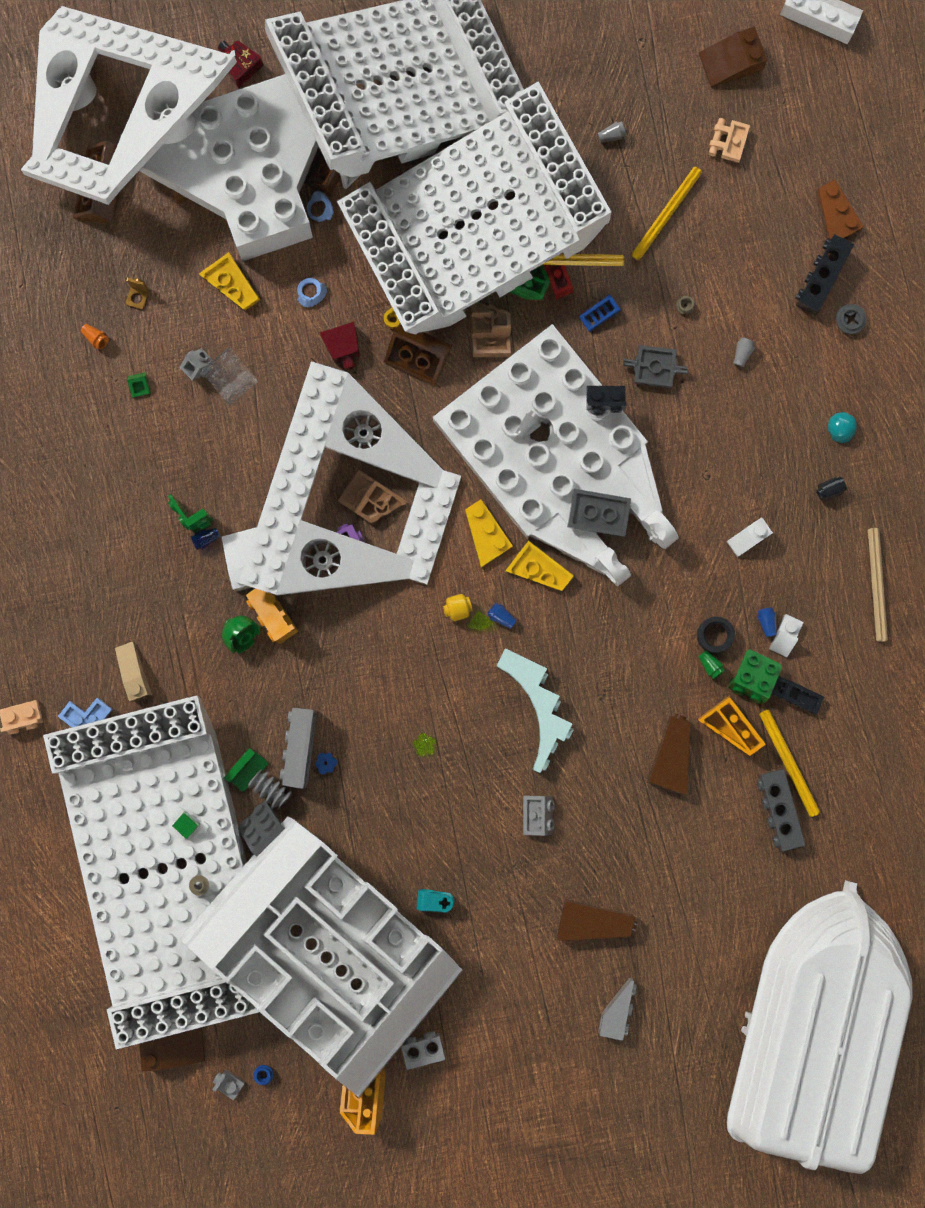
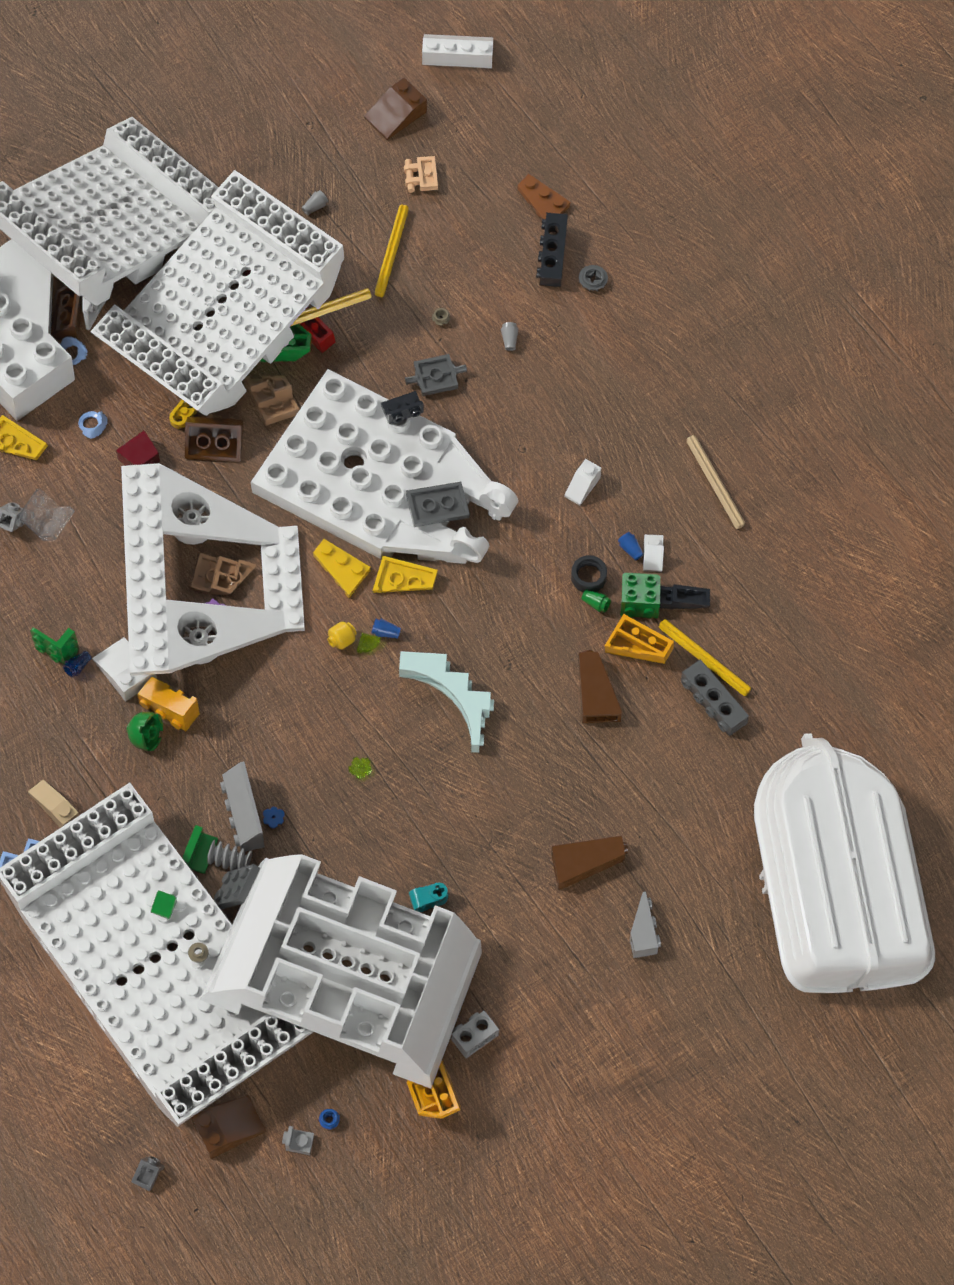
camera: 30 degrees left, 20 degrees down
(86, 1059) = (147, 1172): none -> flat silver bracket
(529, 424) = (342, 451): light grey cone -> none
(538, 815) = (493, 786): light grey bracket -> none
(602, 303) = (370, 335): blue slope -> none
(831, 488) = (638, 417): black brick -> none
(842, 427) = (625, 366): teal hair -> none

